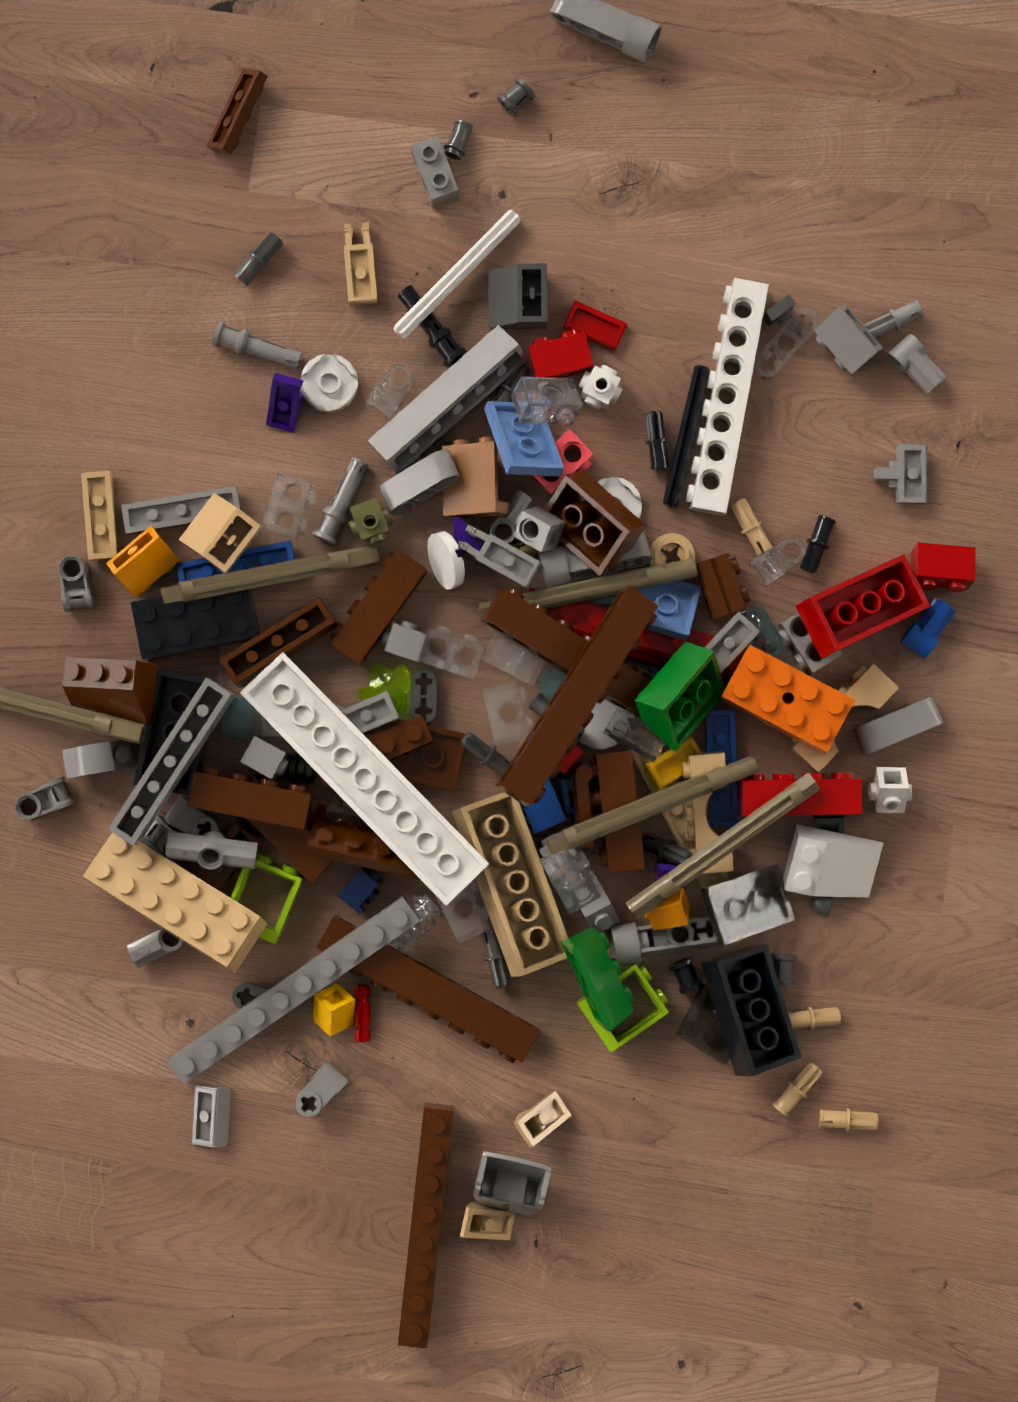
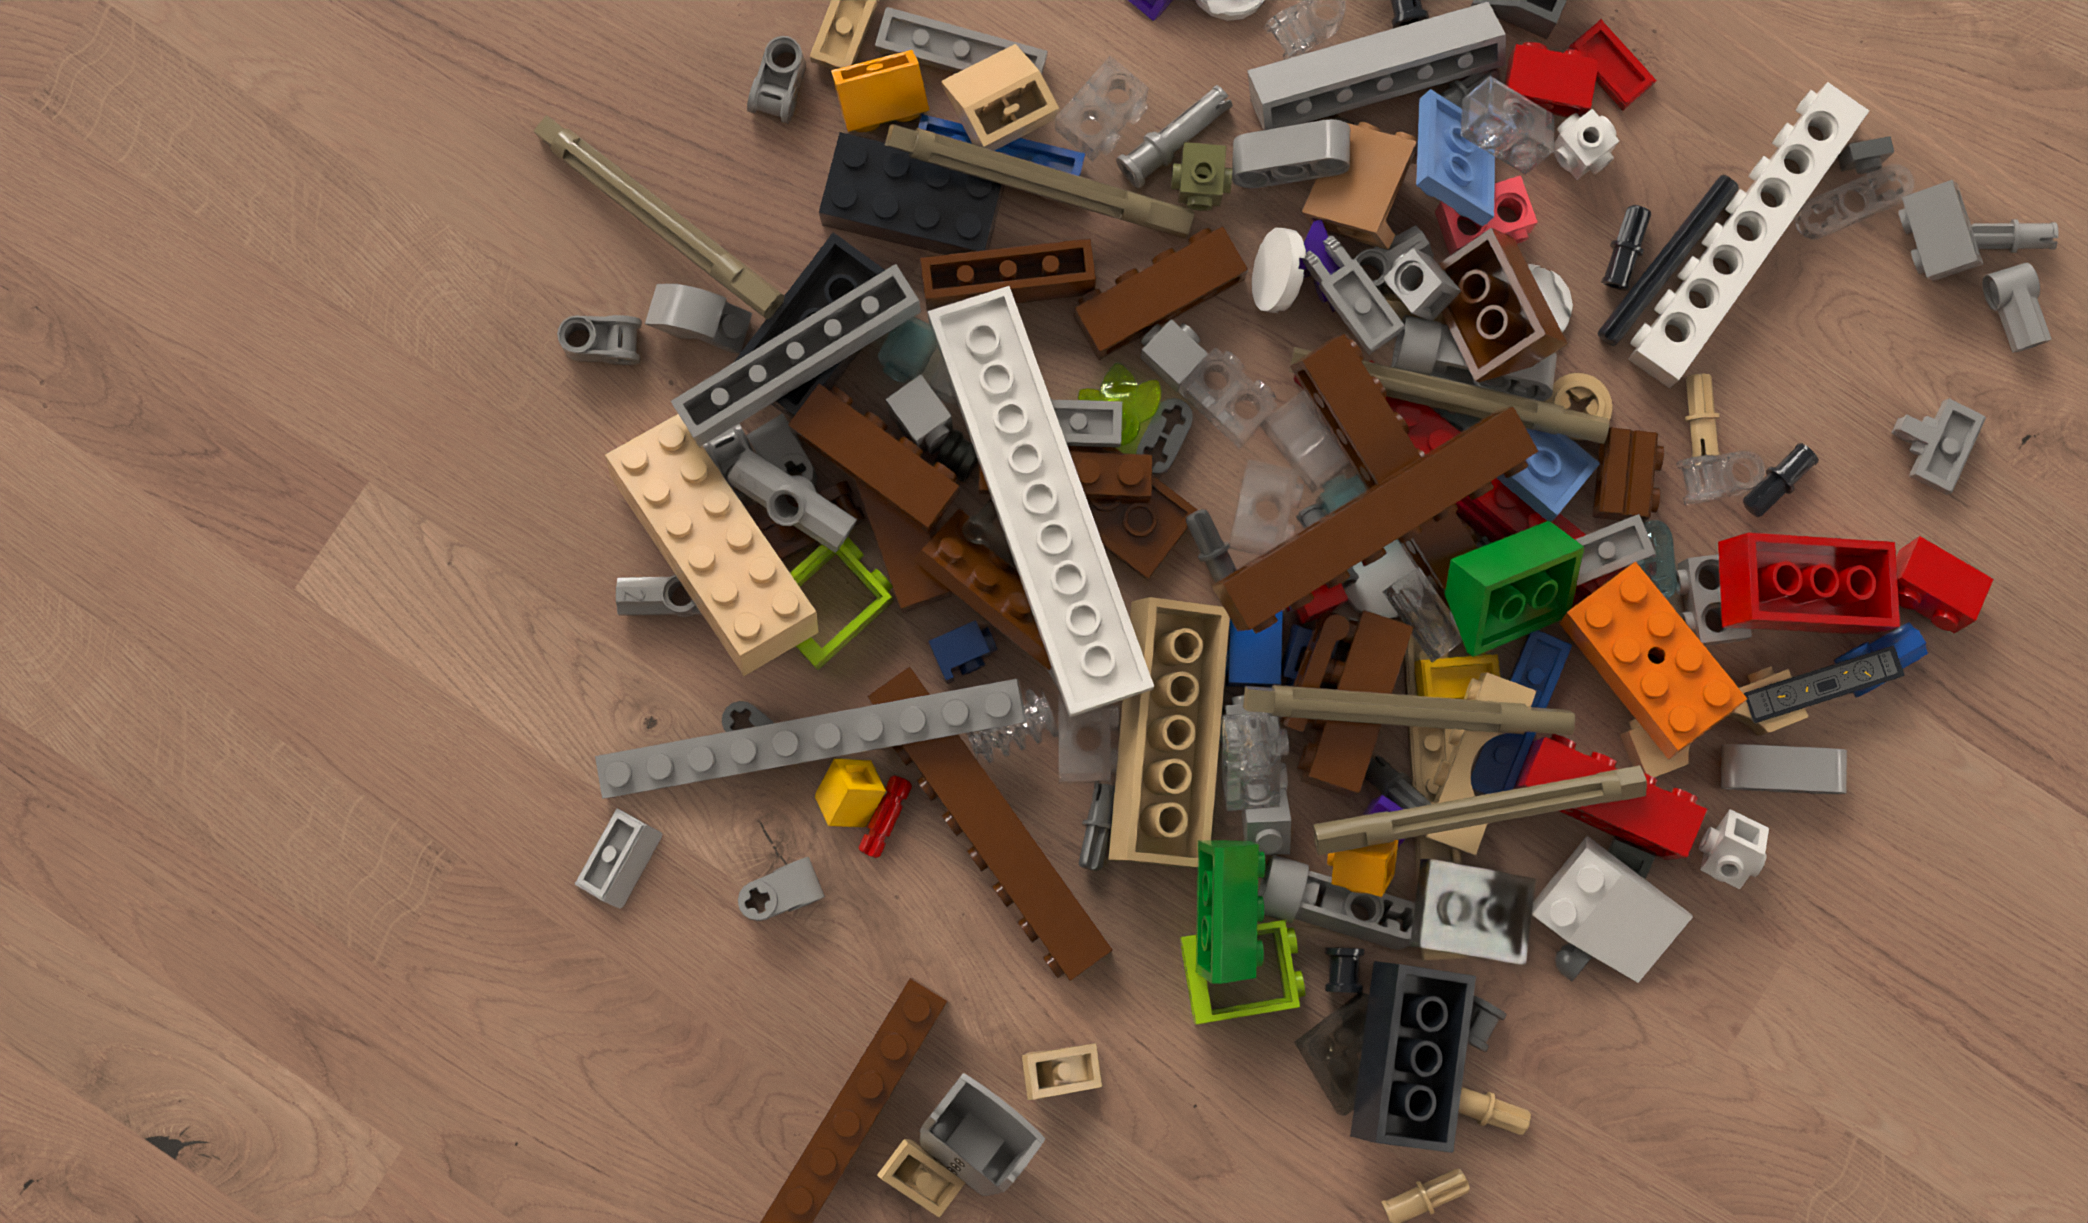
camera: 25 degrees right, 5 degrees down
(111, 686) = (763, 226): reddish brown slope -> none
(899, 663) = (1824, 684): none -> sticker

